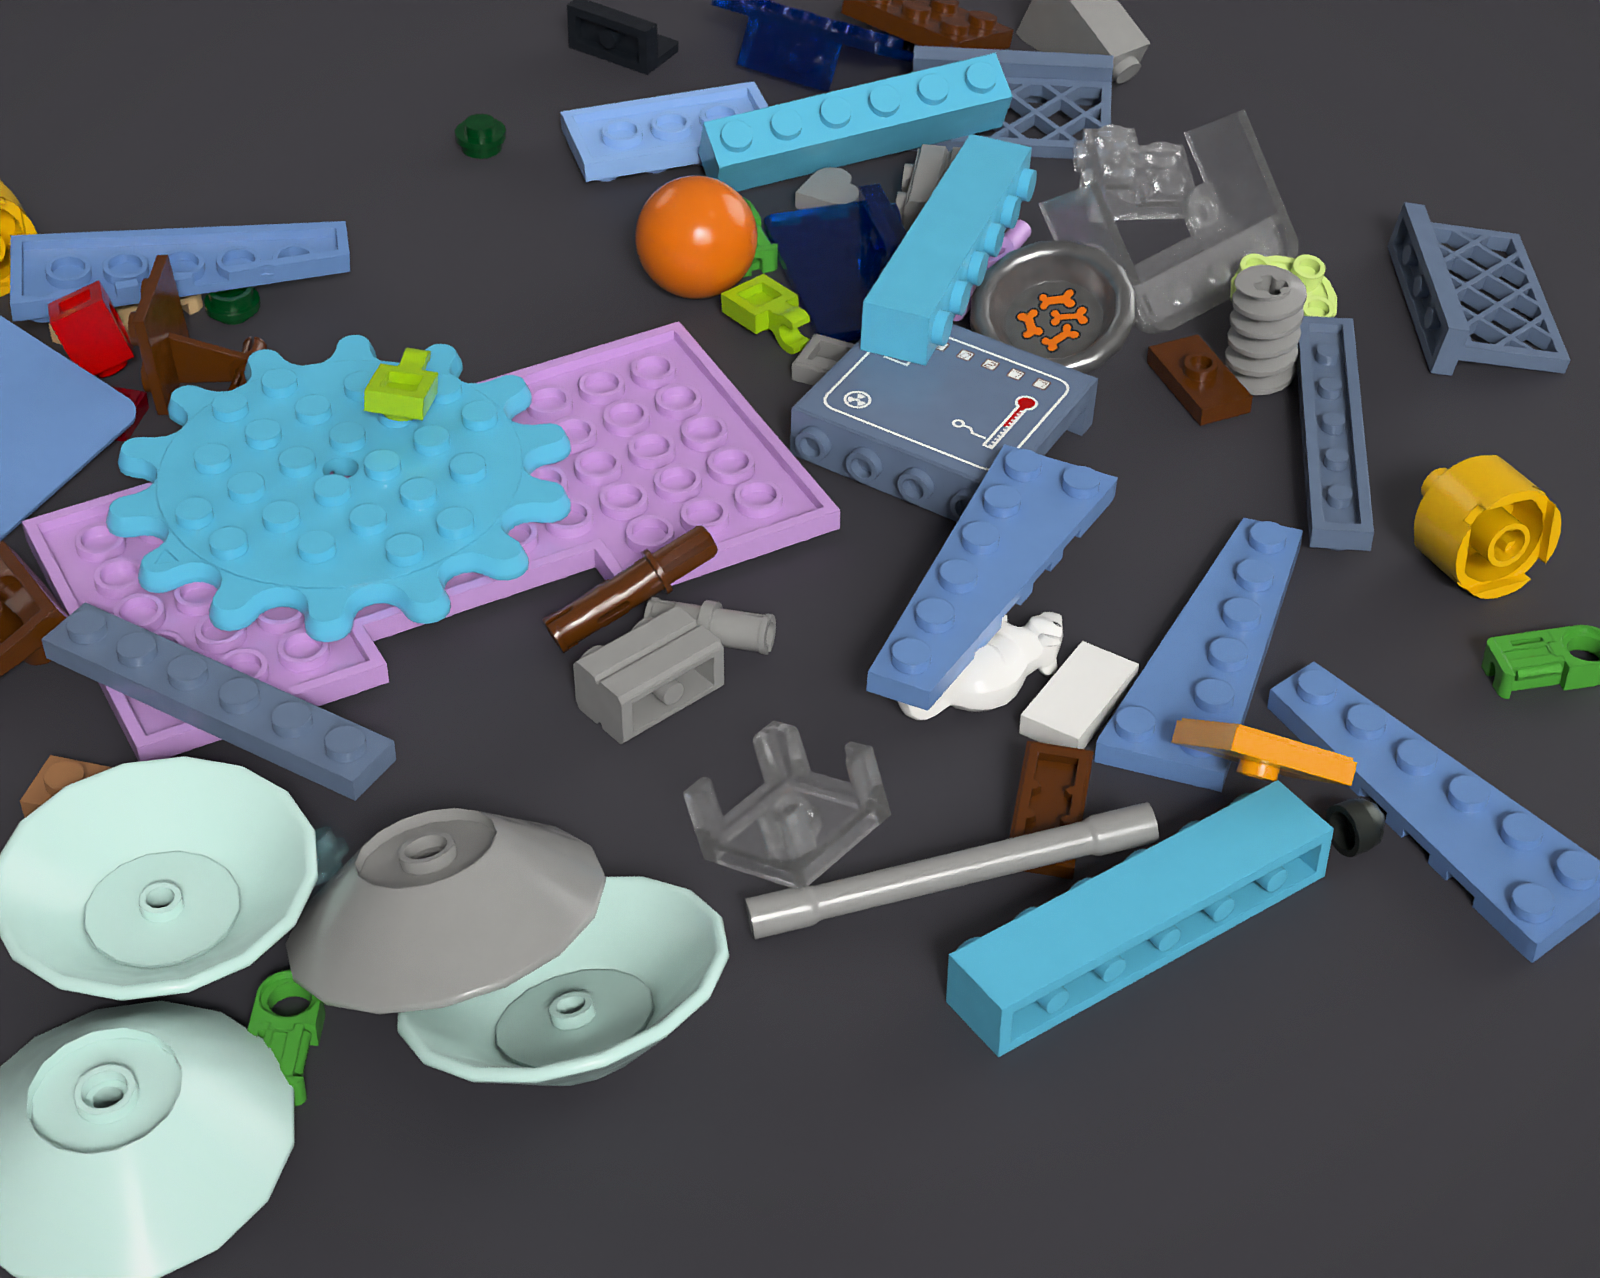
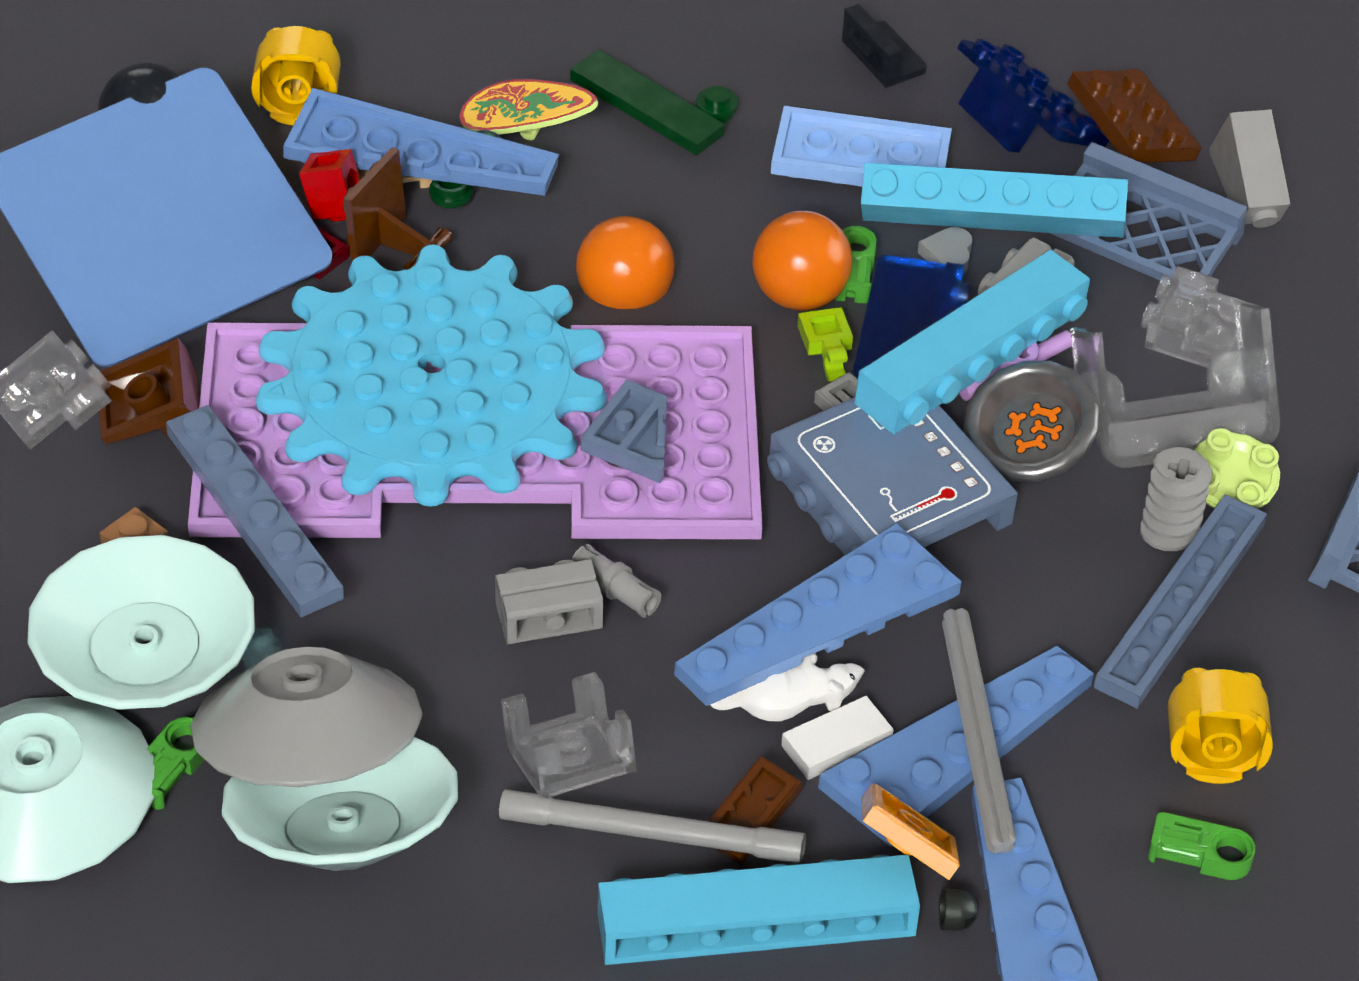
camera: 25 degrees right, 5 degrees up
(274, 189) = (525, 106): none -> shield
(400, 156) = (647, 102): none -> dark green tile
(403, 390) = (499, 319): lime plate -> none
(489, 307) = (625, 263): none -> orange piece
(630, 460) = (631, 431): none -> sand blue wing
(630, 588) = (573, 532): reddish brown axle -> none
(1199, 379) = (1116, 518): reddish brown plate -> none
(1247, 627) = (978, 732): none -> light grey axle

